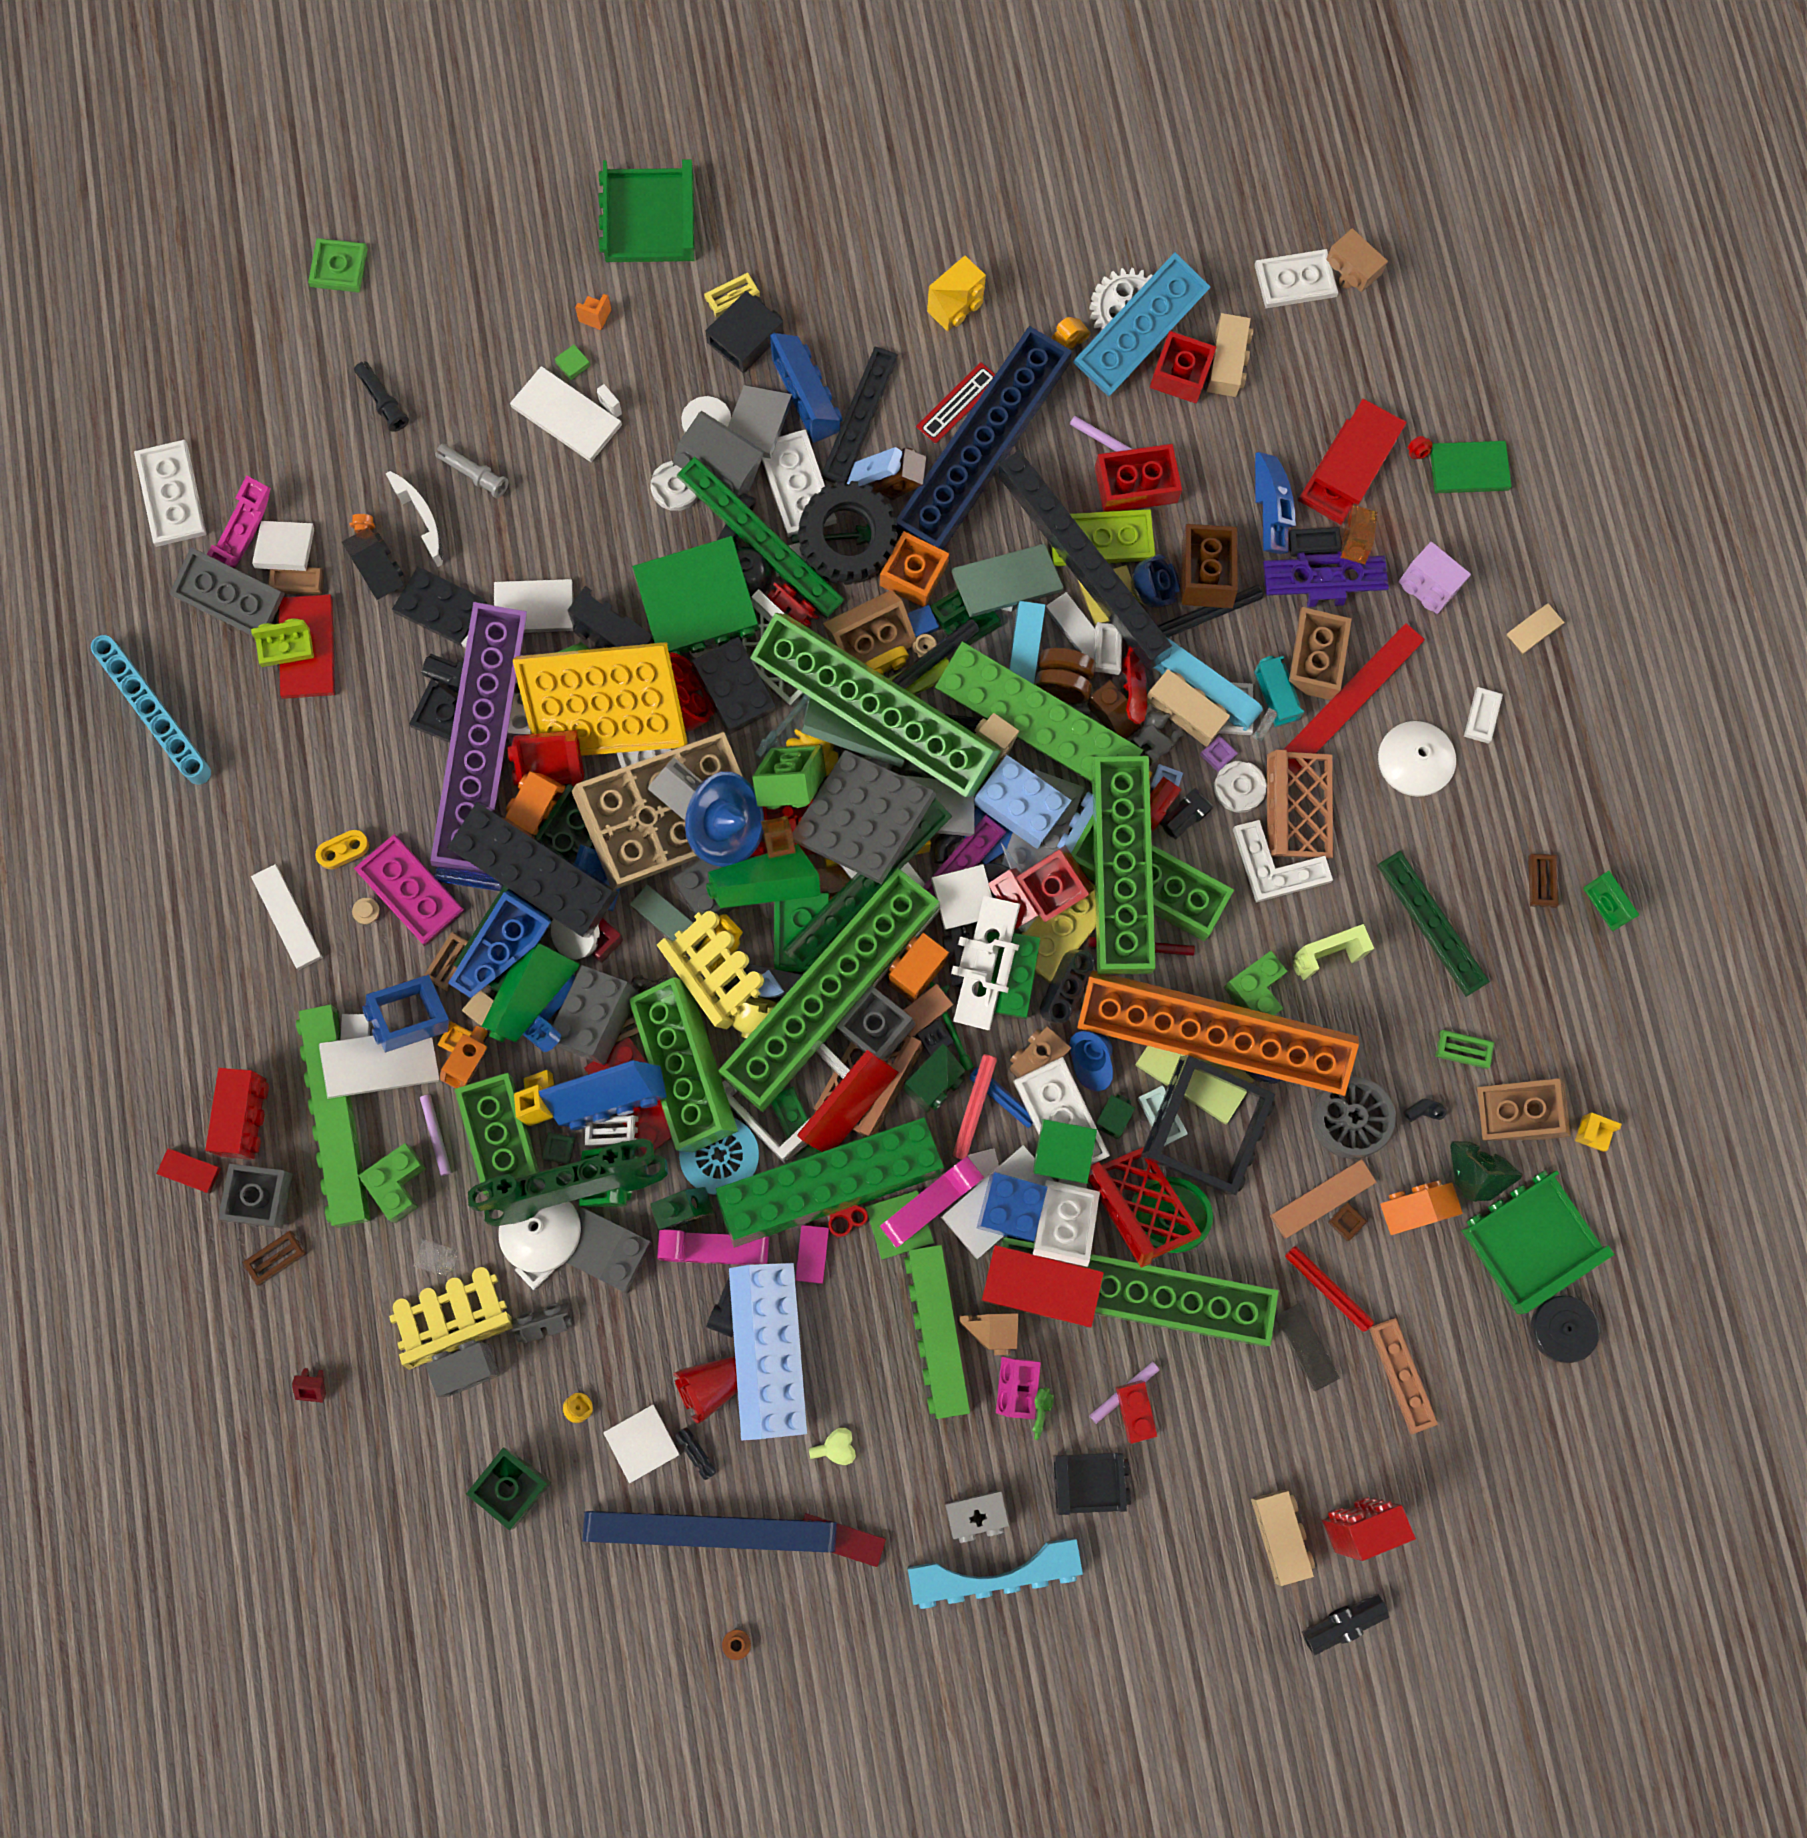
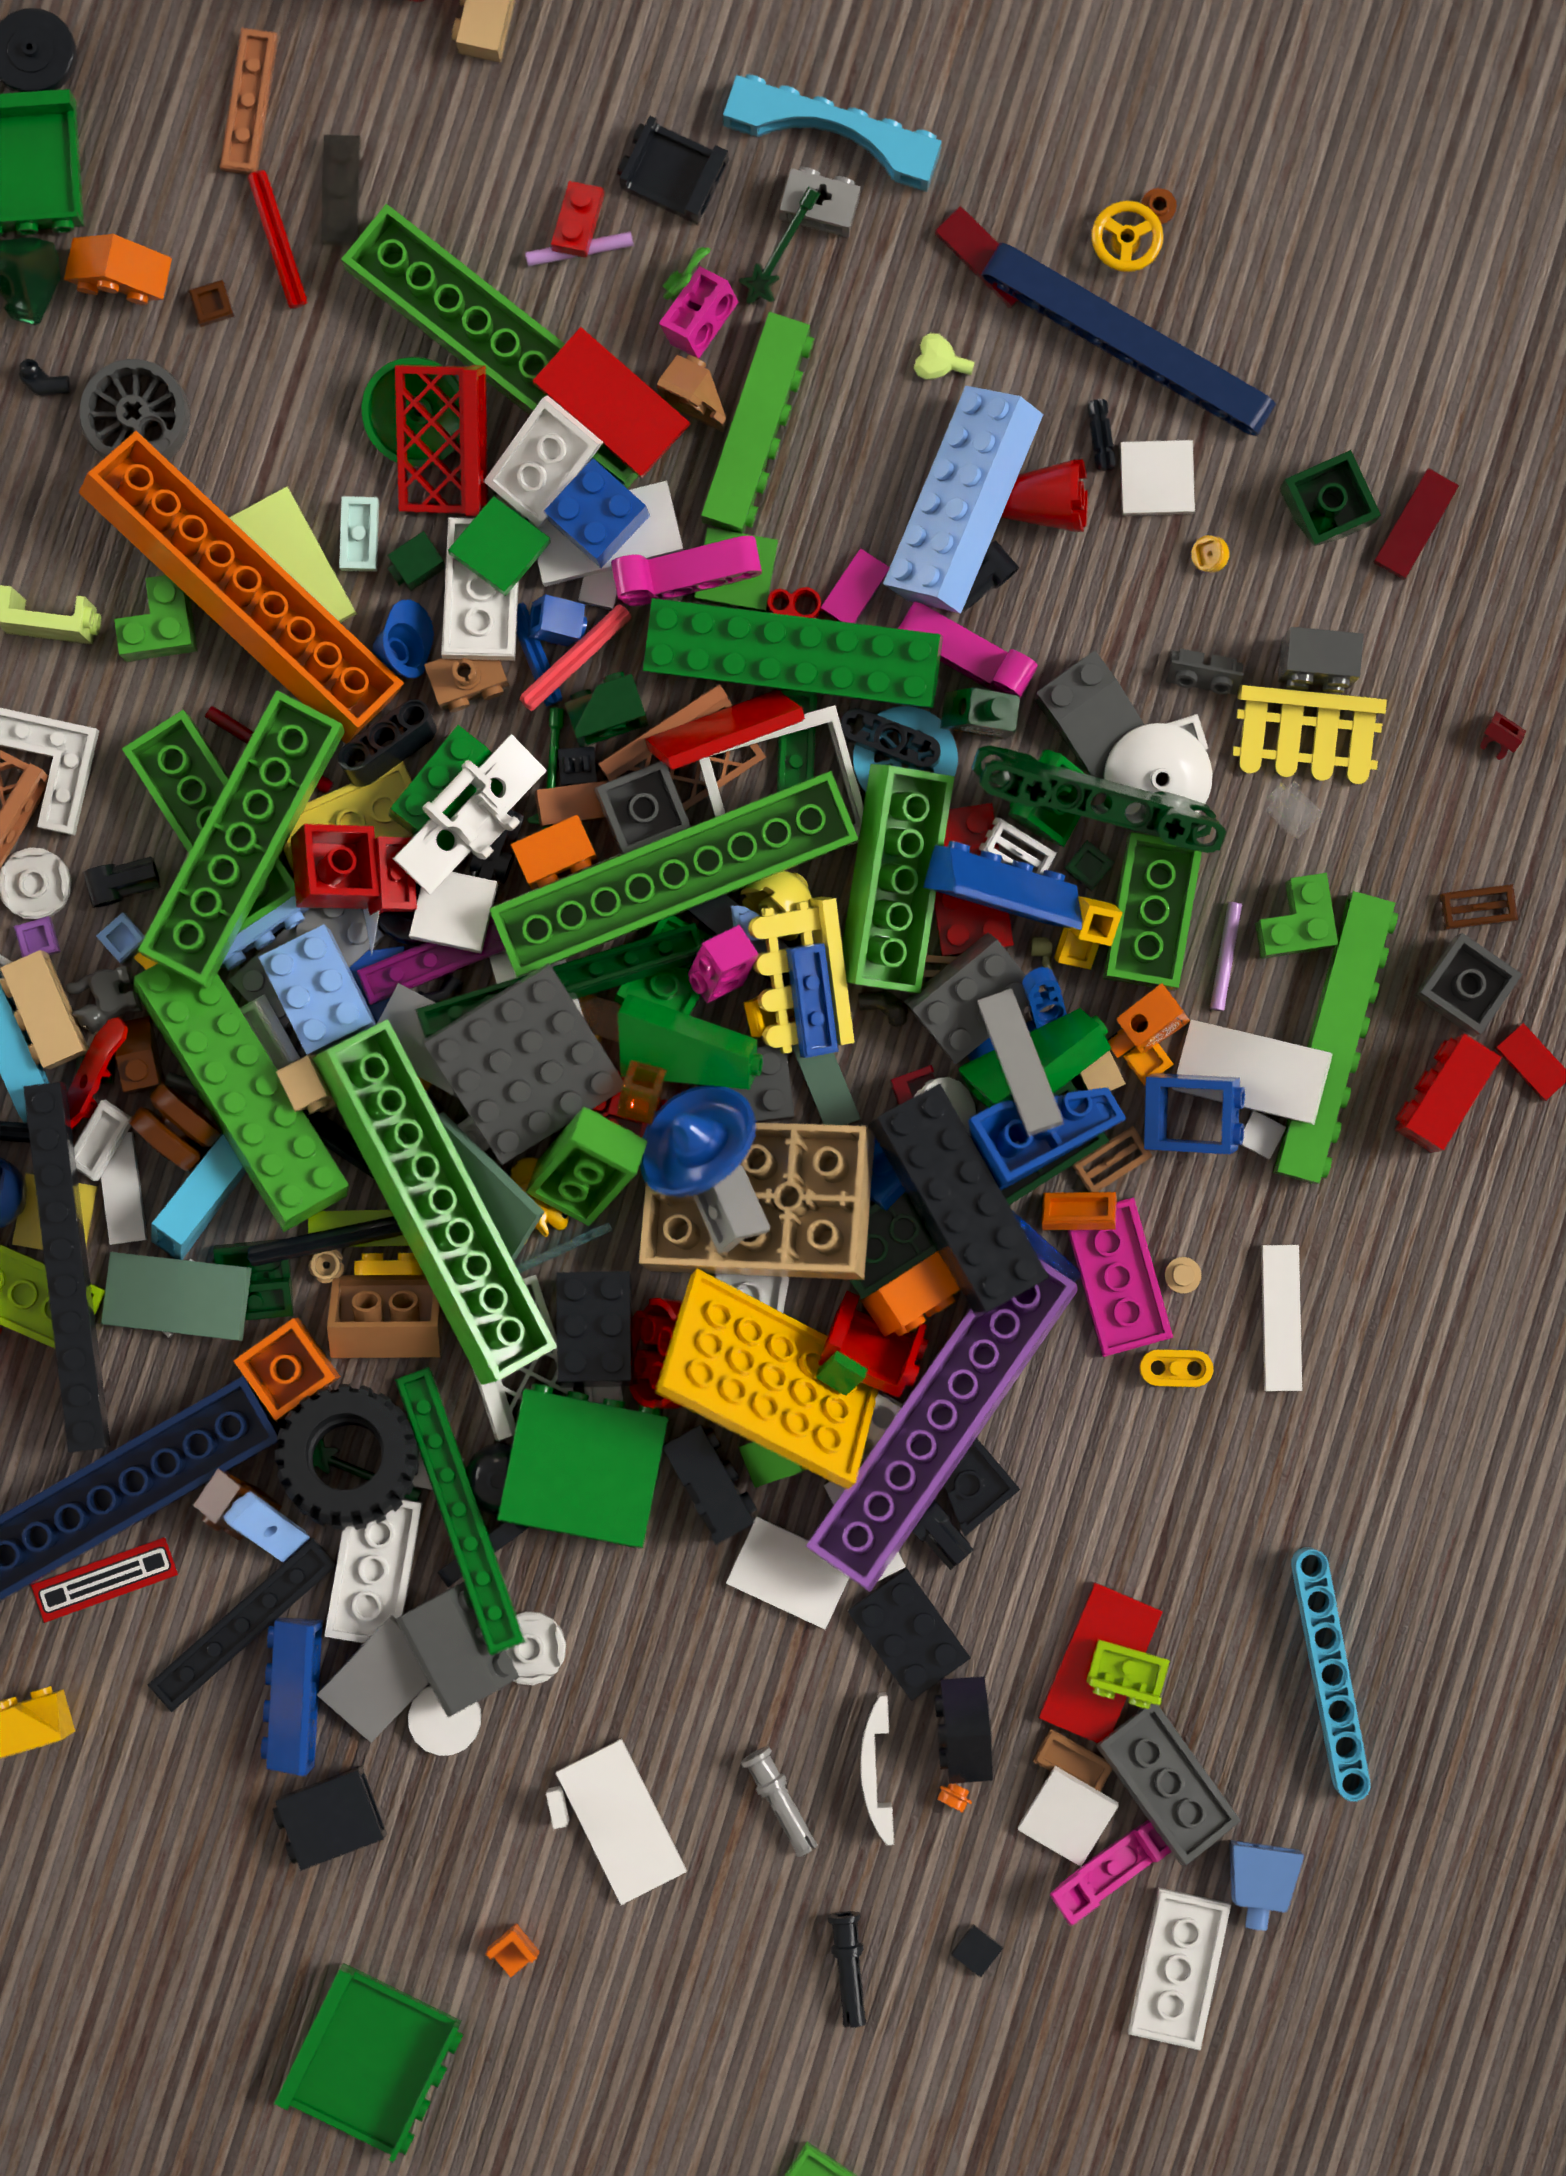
camera: 145 degrees left, 10 degrees up
(138, 567) = (1263, 1879): none -> medium blue torso
(304, 443) = (977, 1950): none -> black tile
(441, 1508) = (1416, 524): none -> dark red tile
(454, 916) = (1079, 1211): none -> orange tile
(535, 978) = (1020, 1062): none -> light grey tile
(557, 729) = (841, 1373): none -> green tile
(561, 1075) = (1043, 948): none -> olive hand
(572, 362) = (577, 1892): bright green tile -> none
(697, 954) = (812, 1000): none -> blue tile
(722, 304) = (350, 1883): light yellow tile -> none
(741, 1150) = (862, 738): none -> black beam
(768, 946) = (722, 964): none -> dark pink brick
(768, 1610) = (1124, 249): none -> yellow piece
(785, 597) = (466, 1418): red hinge -> none
(923, 621) = (312, 1300): blue tile -> none
(987, 1436) = (761, 281): none -> dark green piece
(999, 1124) = (557, 620): none -> brick
(1041, 764) = (269, 1032): none -> white tile
(1161, 799) = (140, 913): red piece -> none
(1168, 1112) = (345, 532): black window -> none
(1323, 1199) = (224, 343): nougat tile -> none

